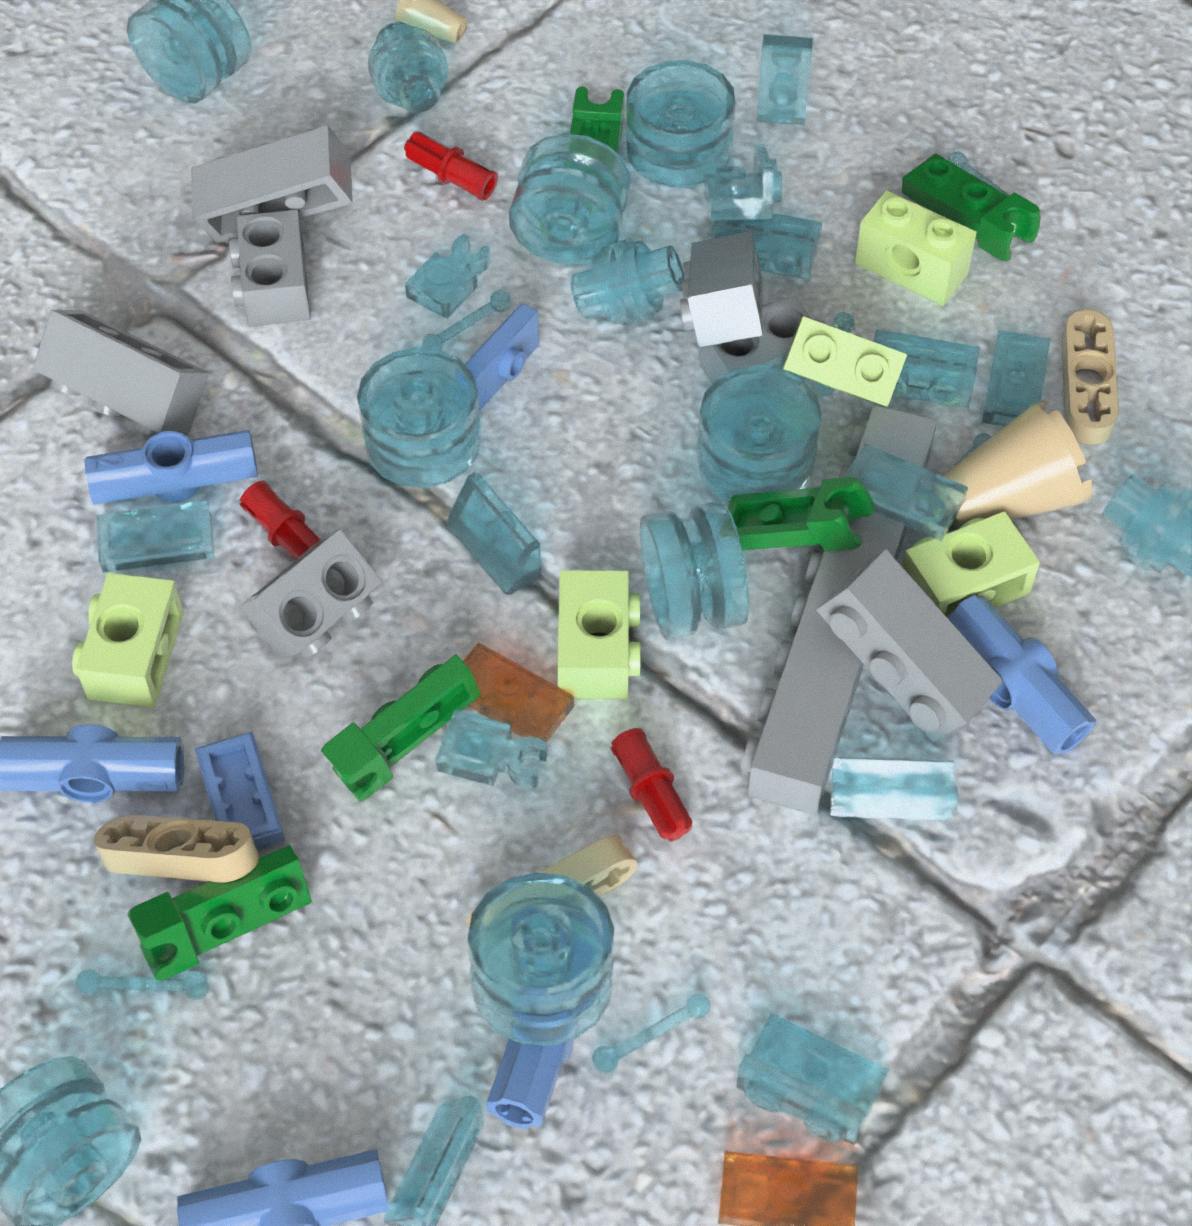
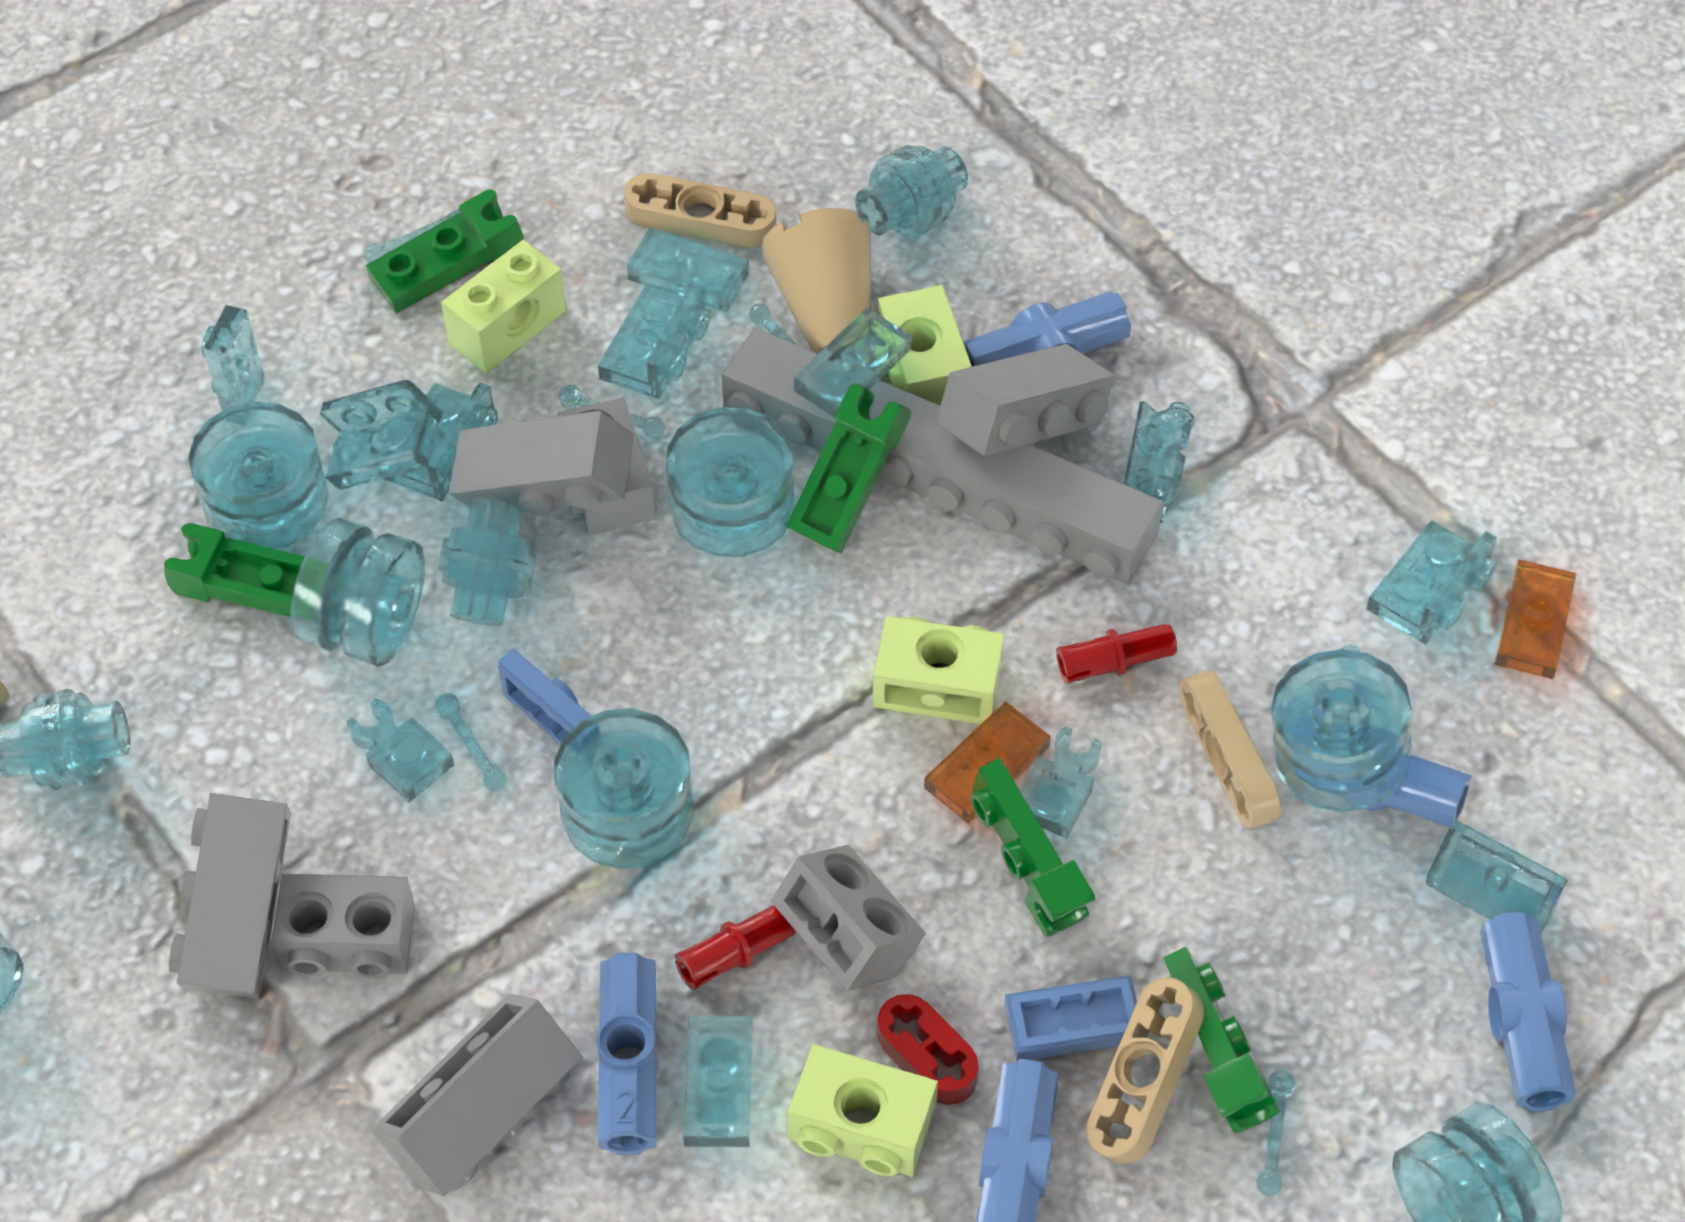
camera: 80 degrees left, 0 degrees up
(206, 689) = (937, 1039): none -> red beam
(451, 165) = (229, 722): red axle -> none
(495, 536) = (790, 745): clear light blue slope -> none
(694, 570) = (899, 556): clear light blue wheel -> none
(844, 361) = (676, 379): yellowish green brick -> none

